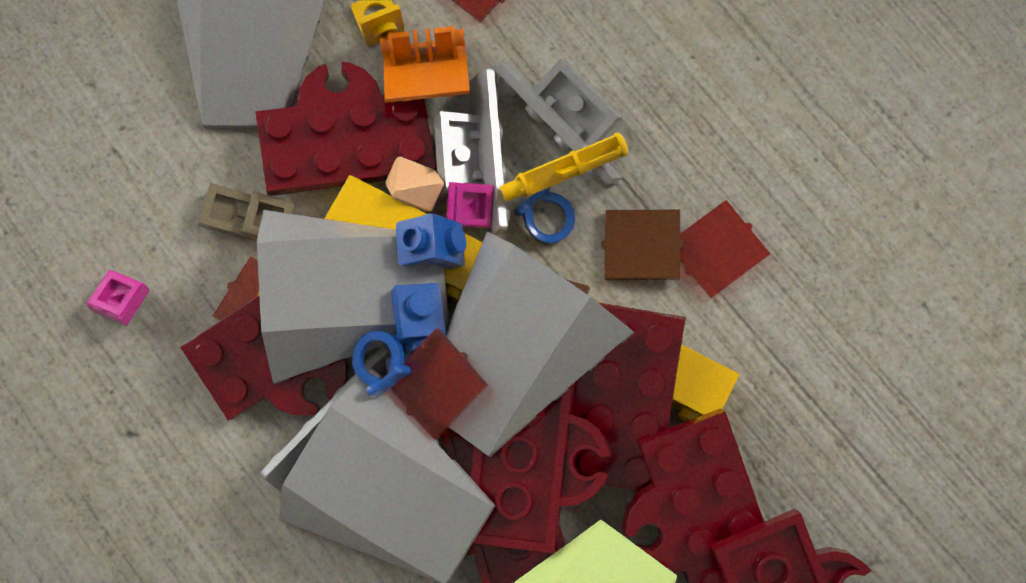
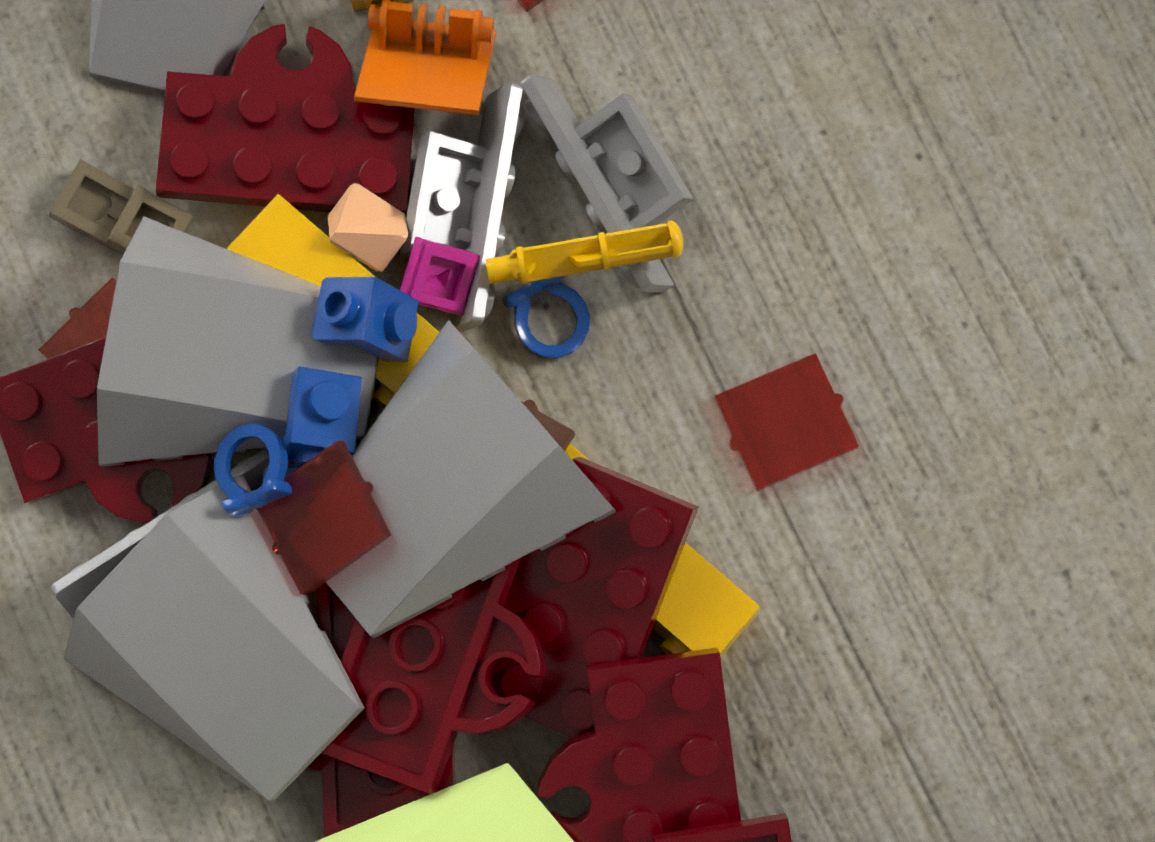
camera: 15 degrees right, 0 degrees up
(642, 244) = (676, 390): reddish brown piece -> none

